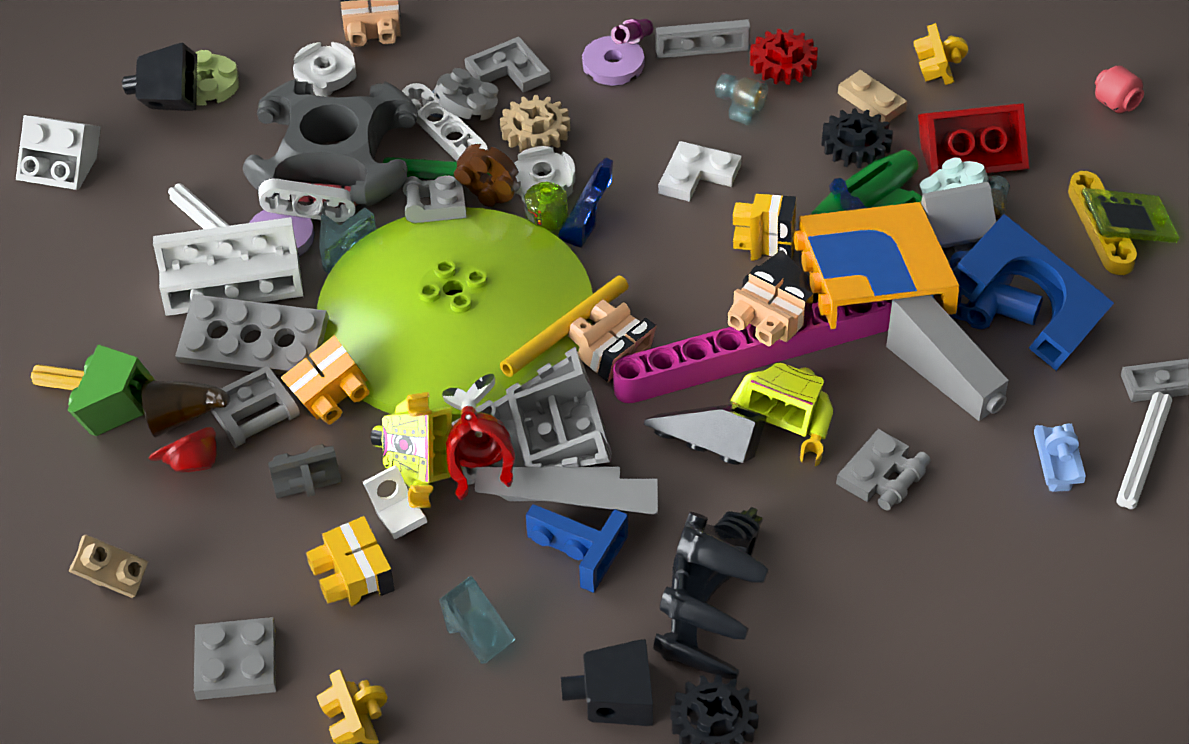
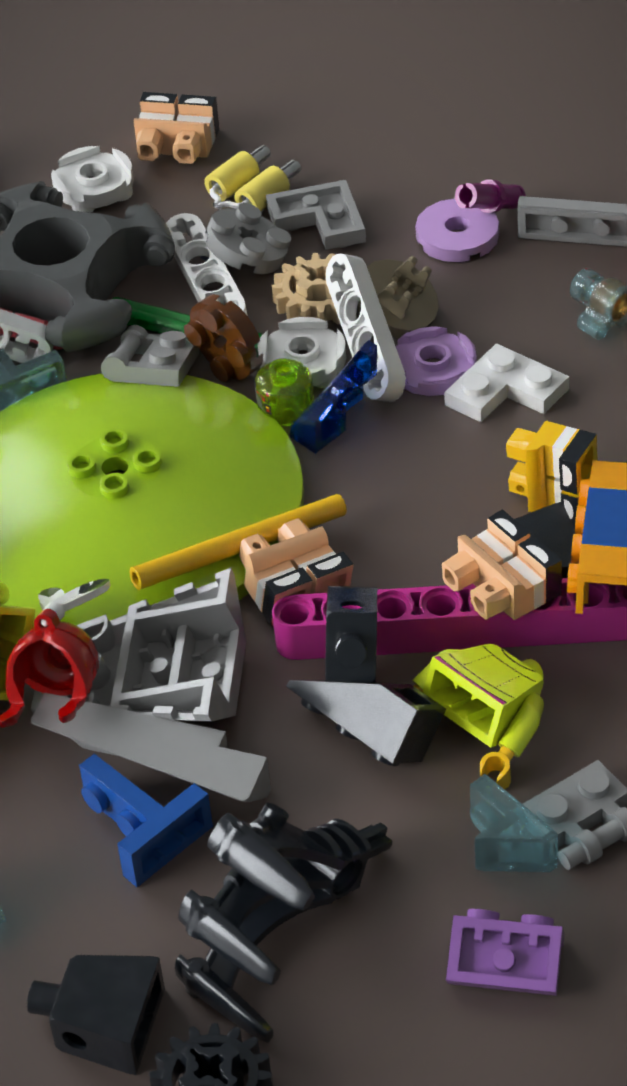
camera: 20 degrees right, 5 degrees down
(434, 43) = (242, 177): none -> light yellow piece
(590, 142) = (348, 284): none -> white beam
(596, 119) = (404, 294): none -> dark tan plate
(638, 175) = (434, 378): none -> lavender tile
(685, 382) = (351, 635): none -> black torso
(846, 493) = (510, 833): none -> clear light blue slope
(874, 578) = (505, 953): none -> medium lavender bracket

